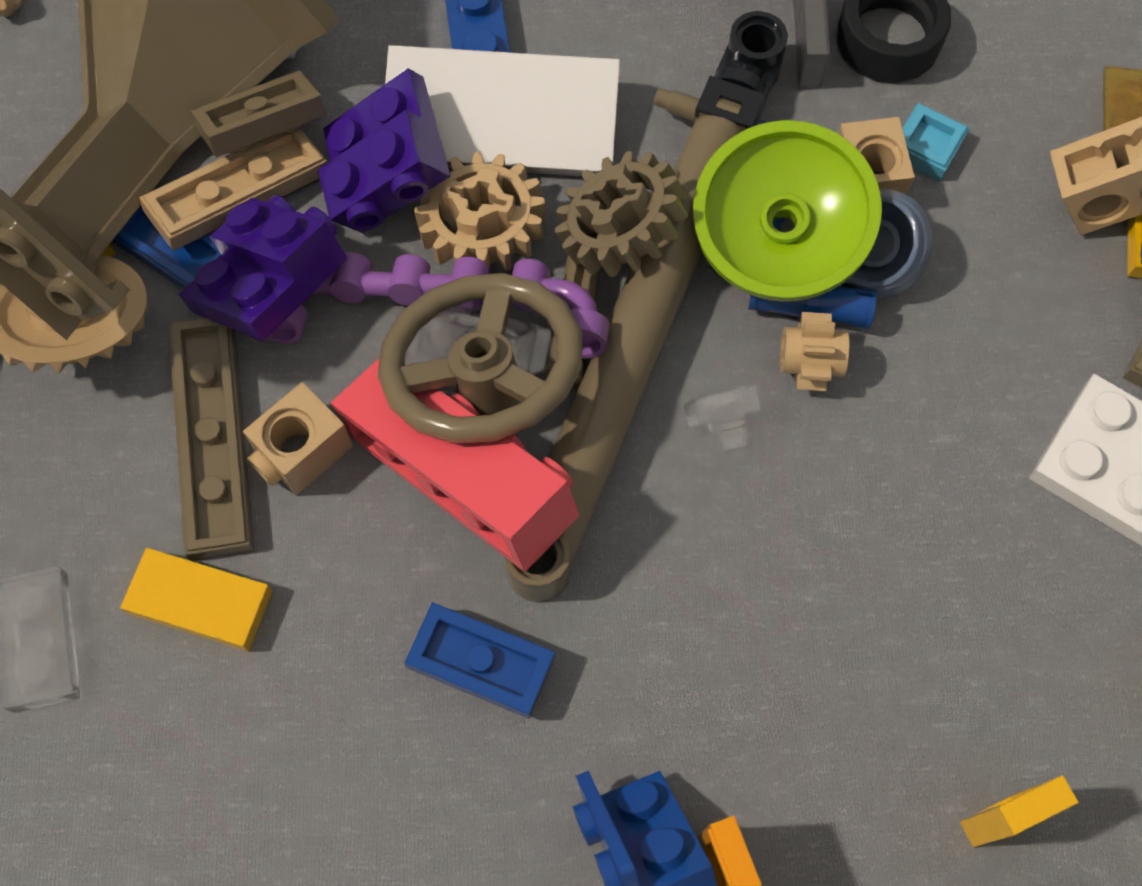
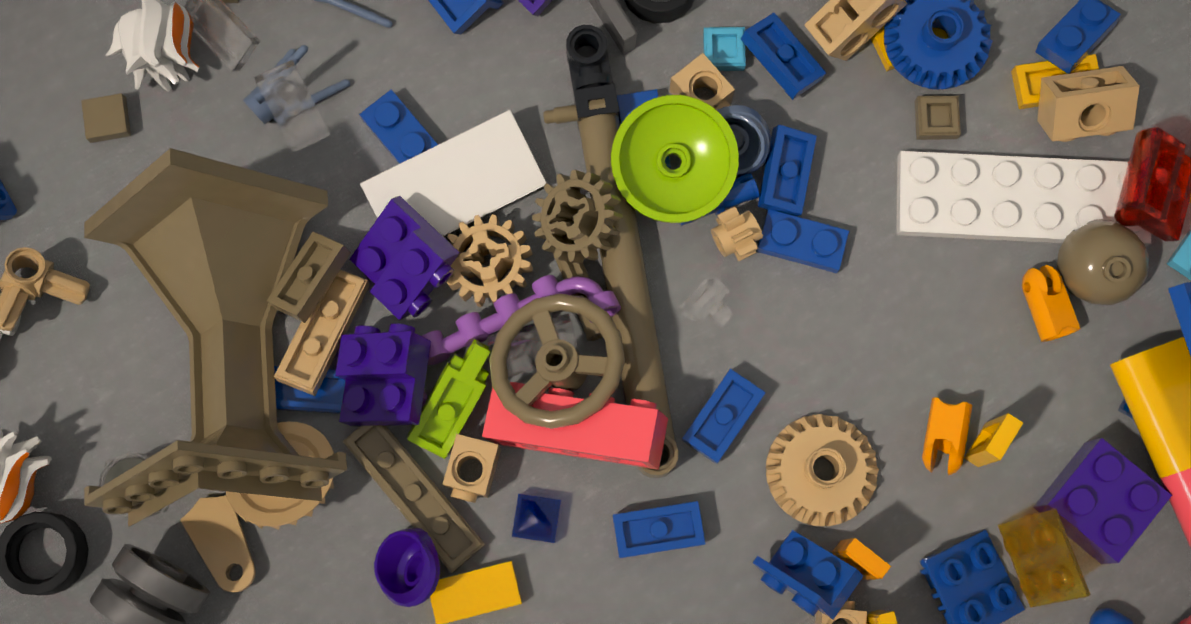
camera: 30 degrees left, 10 degrees up
(133, 508) = (407, 567): none -> dark purple hat
(325, 344) = (451, 401): none -> lime hinge
(336, 553) = (536, 518): none -> clear blue tile
(657, 566) = (723, 416): none -> blue plate
(723, 755) = (793, 477): none -> tan gear
(896, 414) = (803, 241): none -> blue plate
(926, 316) = (787, 170): none -> blue plate
(953, 769) = (946, 432): none -> light orange piece
(1001, 182) = (783, 55): none -> blue plate

